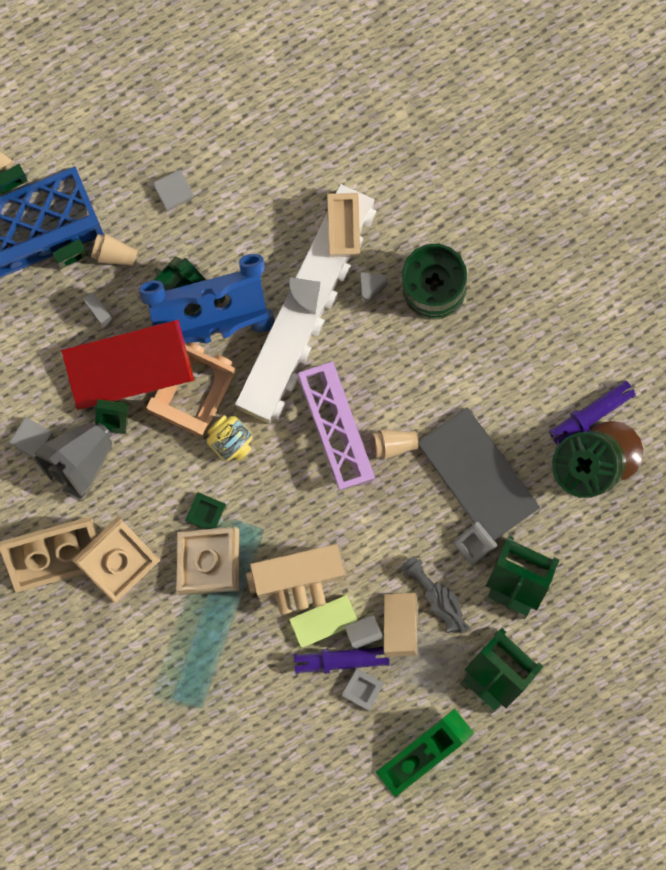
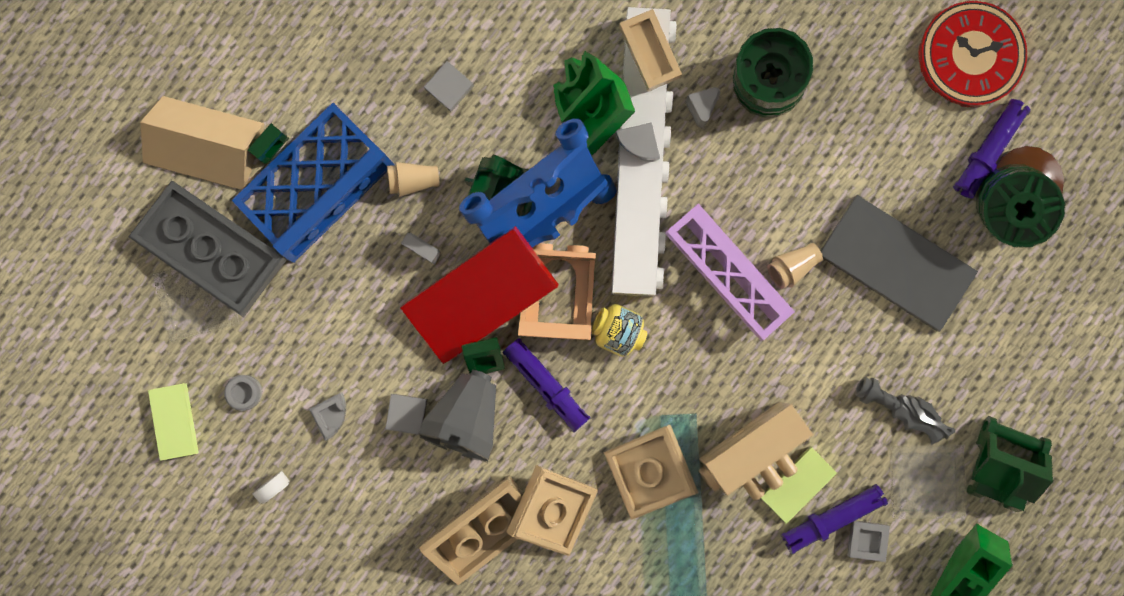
camera: 15 degrees left, 5 degrees up
(70, 254) = (366, 199): dark green tile -> none
(154, 463) = (542, 380): none -> dark purple pin
(205, 512) = (625, 418): dark green tile -> none
(283, 246) = (594, 97): none -> green plate
(363, 632) = (847, 482): light grey slope -> none
(400, 624) = (883, 457): tan tile -> none
(475, 543) = (925, 338): light grey tile -> none
(517, 586) = (991, 367): dark green piece -> none
(609, 331) = (973, 53): none -> tile

